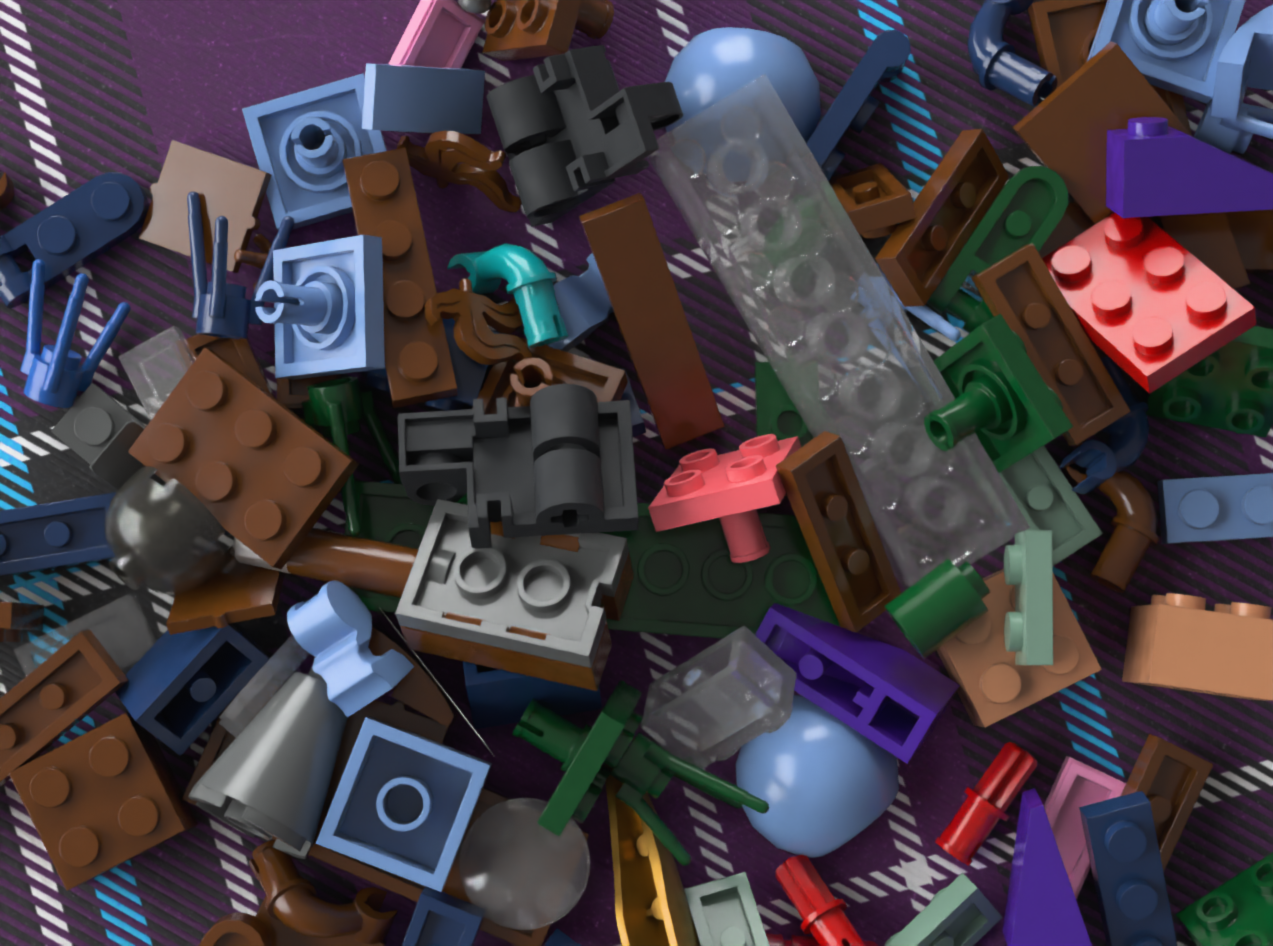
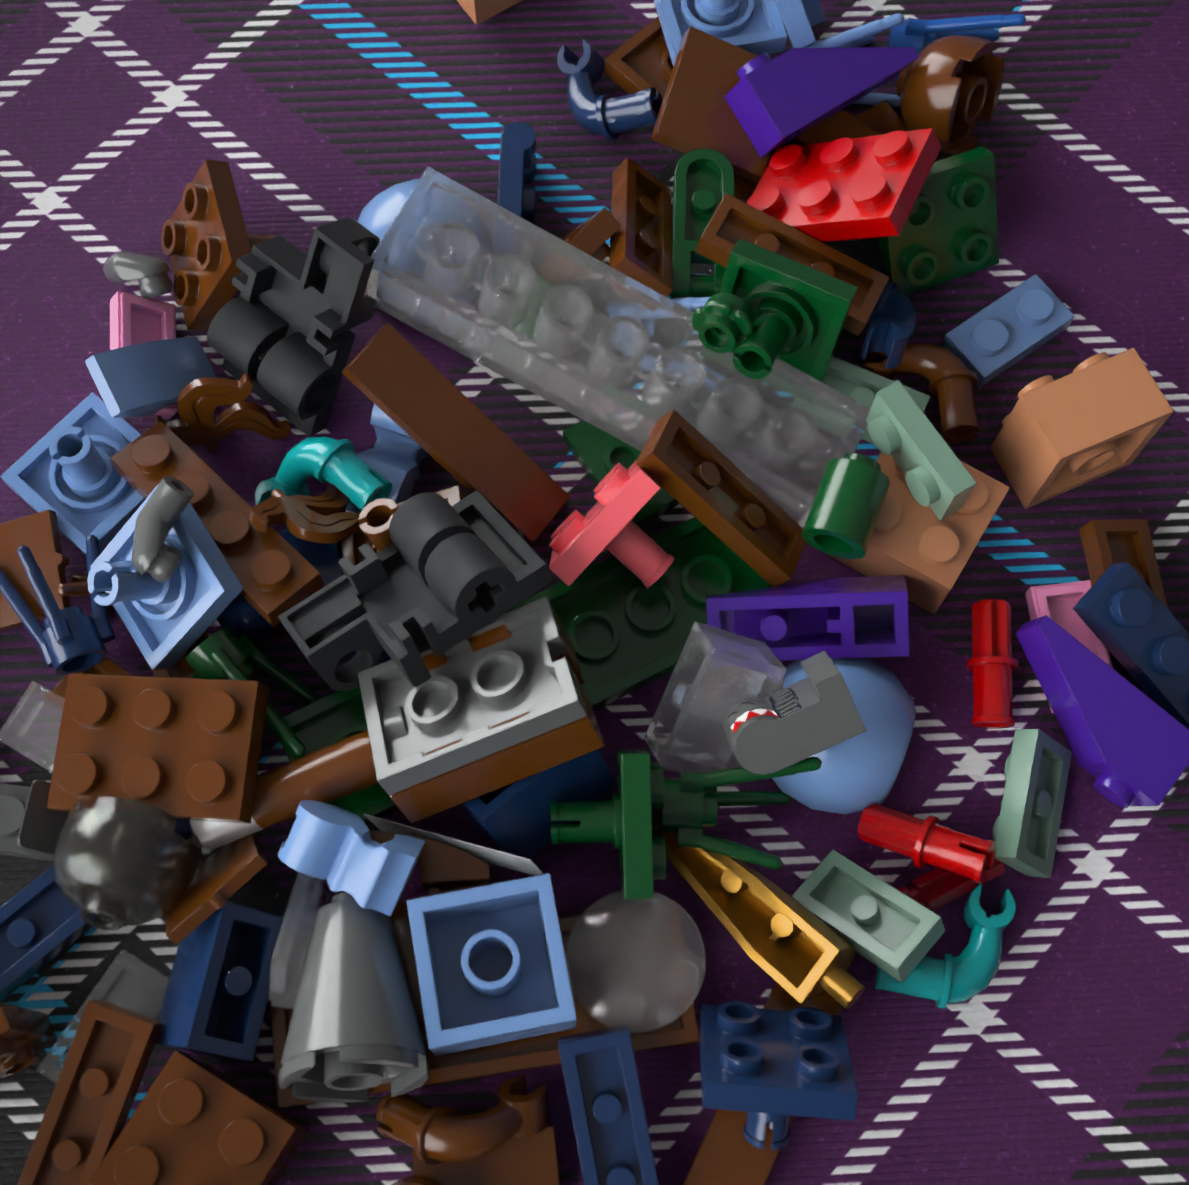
camera: 30 degrees left, 15 degrees down
(335, 276) = (152, 527): none -> dark grey arm
(766, 763) = (793, 721): none -> dark grey leg
(936, 380) = (723, 322): none -> dark green plate

